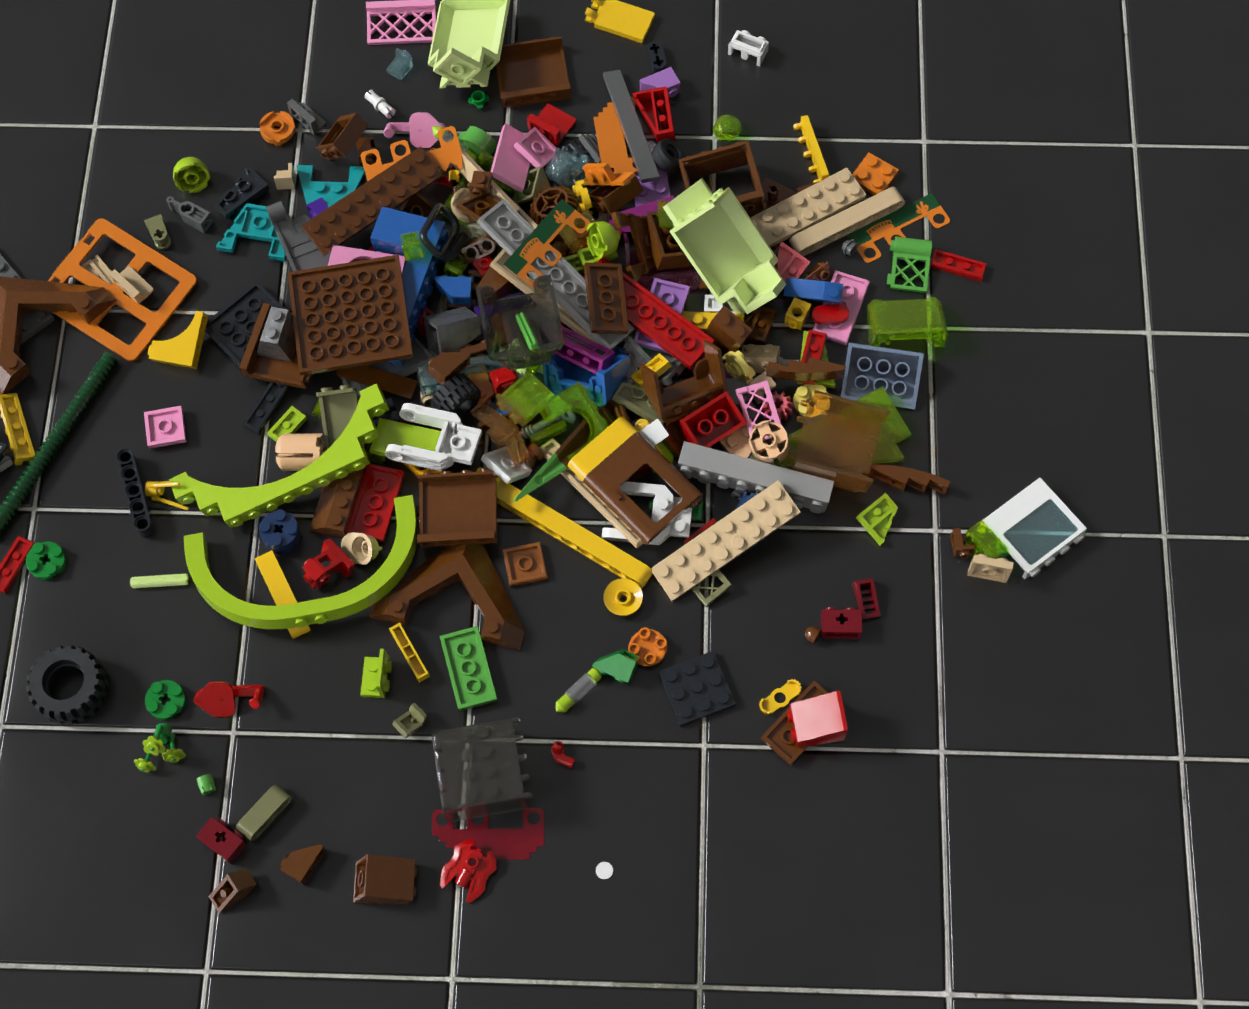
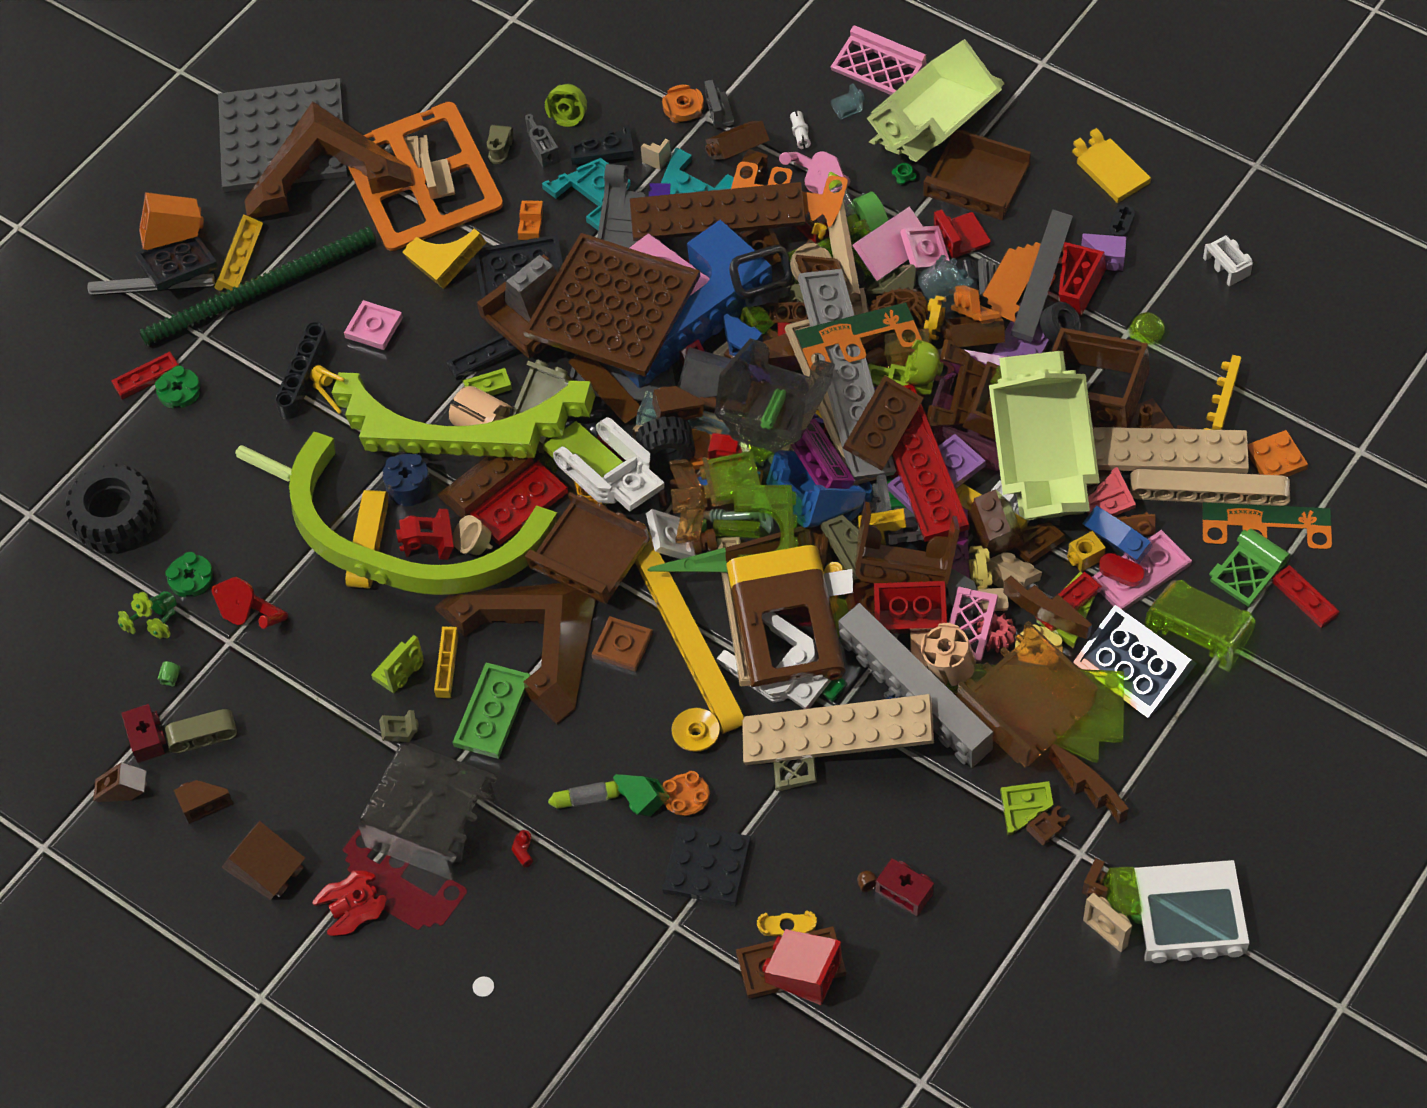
camera: 35 degrees right, 10 degrees down
(226, 280) = (530, 220): none -> orange slope
(411, 245) = (717, 270): clear neon green slope -> none
(480, 183) = (836, 247): reddish brown bracket -> none
(849, 247) = (1194, 515): dark grey plate -> none
(858, 594) = (958, 860): dark red slope -> none
(903, 524) = (1047, 827): none -> reddish brown plate

